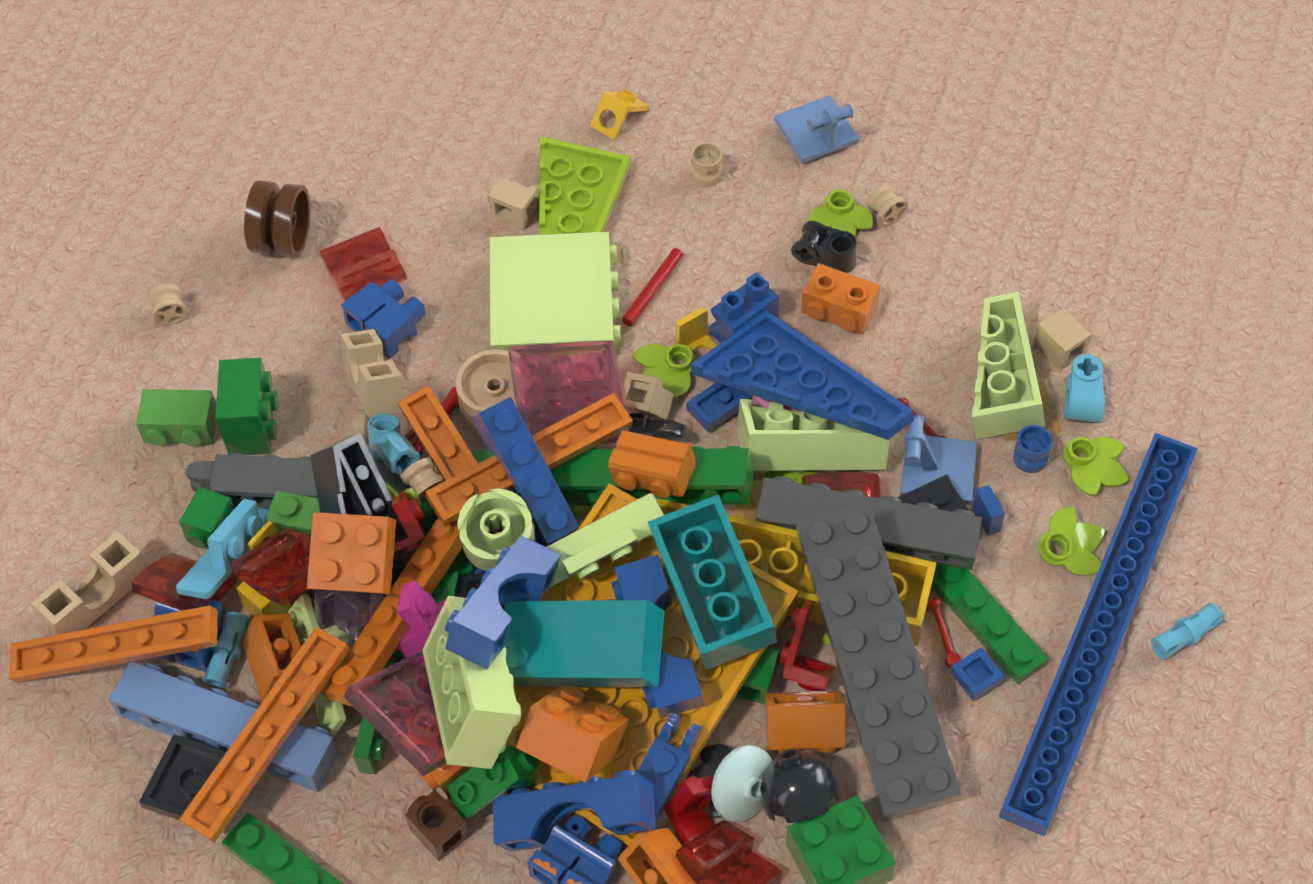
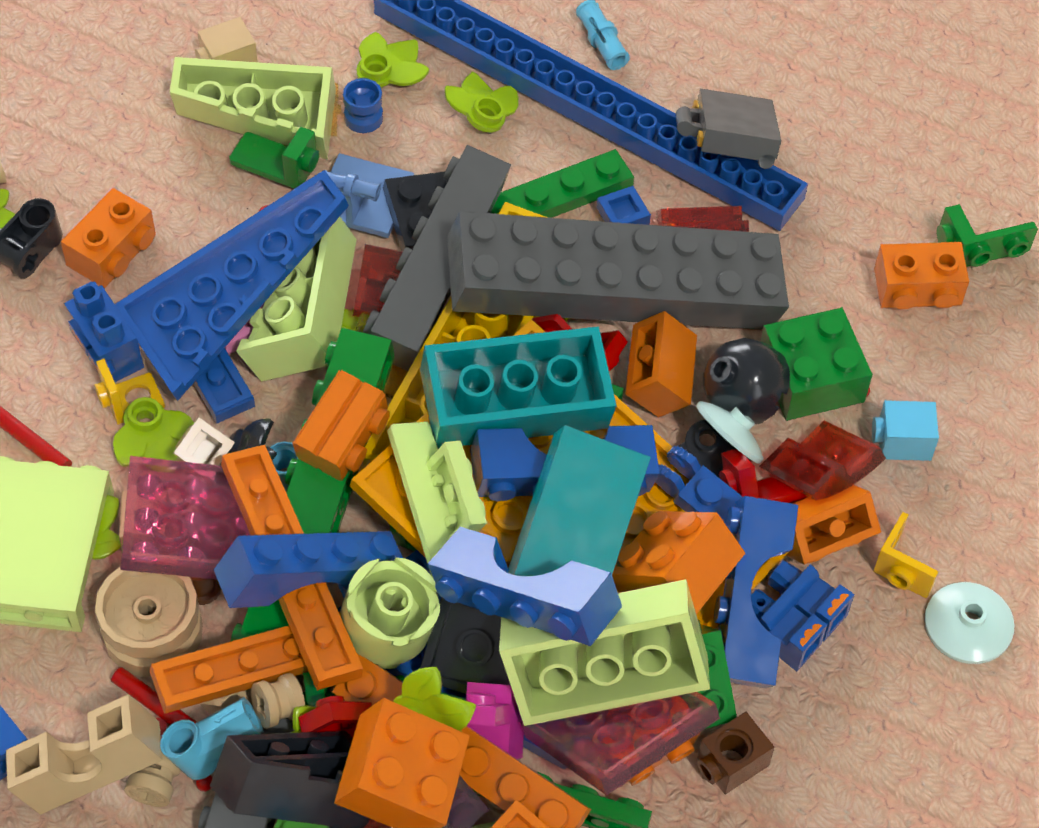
camera: 85 degrees left, 0 degrees up
(407, 562) = (422, 694): none -> lime plate
(955, 397) = (275, 161): none -> green bracket
(973, 738) = (704, 217): none -> clear red slope
(989, 508) = (430, 156): blue tile -> none
(1085, 390) = (302, 43): medium azure piece -> none
(1092, 747) = (732, 125): none -> dark grey piece

